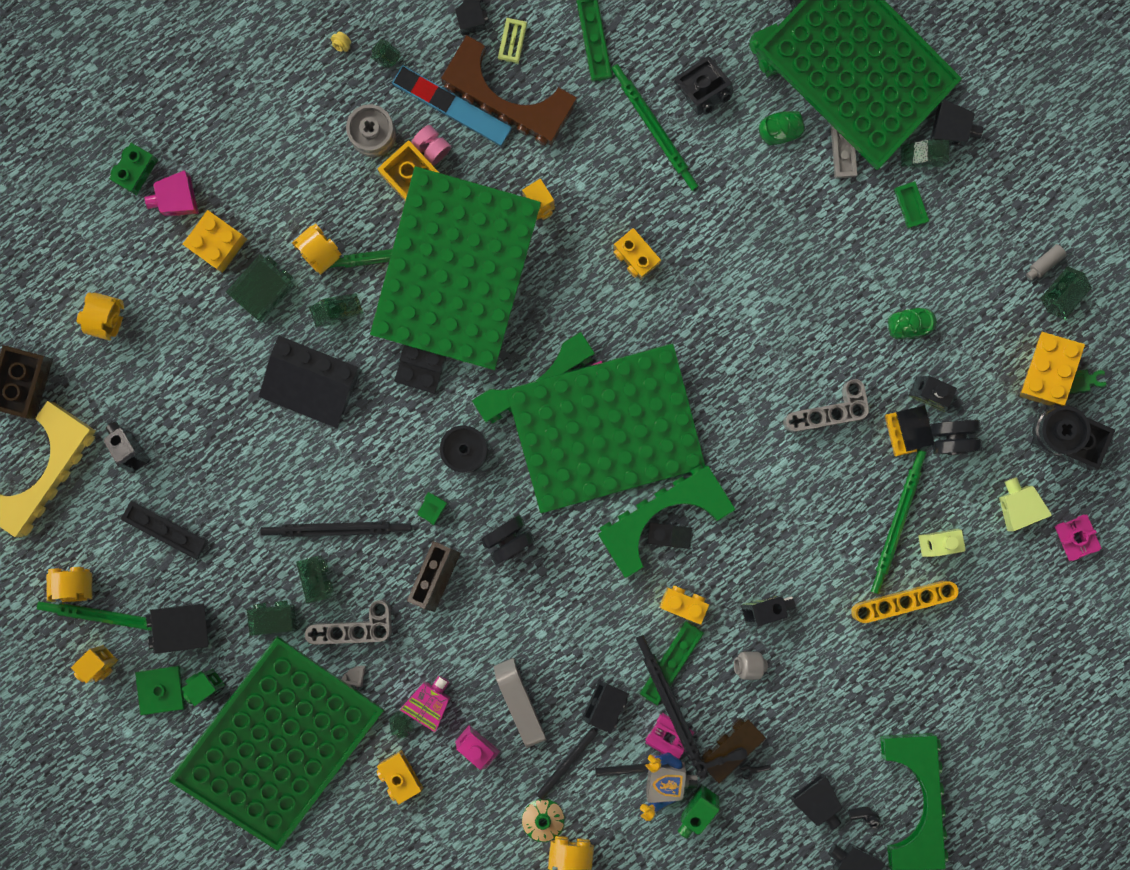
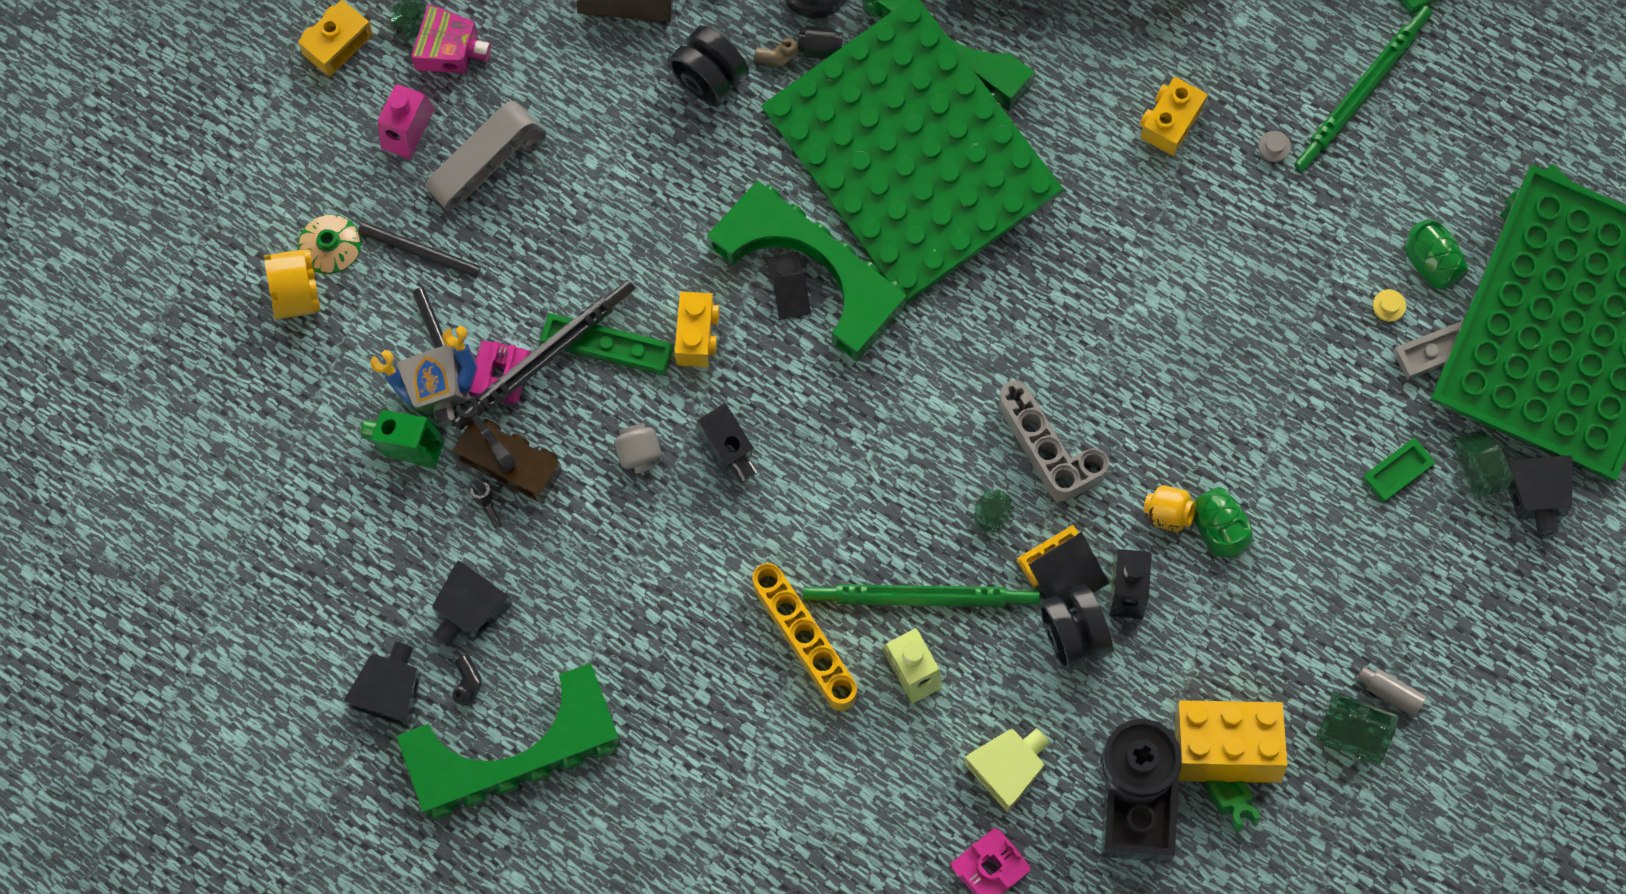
camera: 70 degrees right, 15 degrees down
(508, 489) = (779, 56): none -> dark tan arm
(509, 460) = (819, 42): none -> black brick
(605, 706) = (515, 267): black brick -> none
(676, 198) = (1274, 146): none -> light grey plate
(704, 86) = (1449, 131): black plate -> none
(805, 169) = (1389, 305): none -> light yellow plate
(861, 460) = (993, 511): none -> clear green plate
(894, 352) = (1170, 508): none -> yellow head

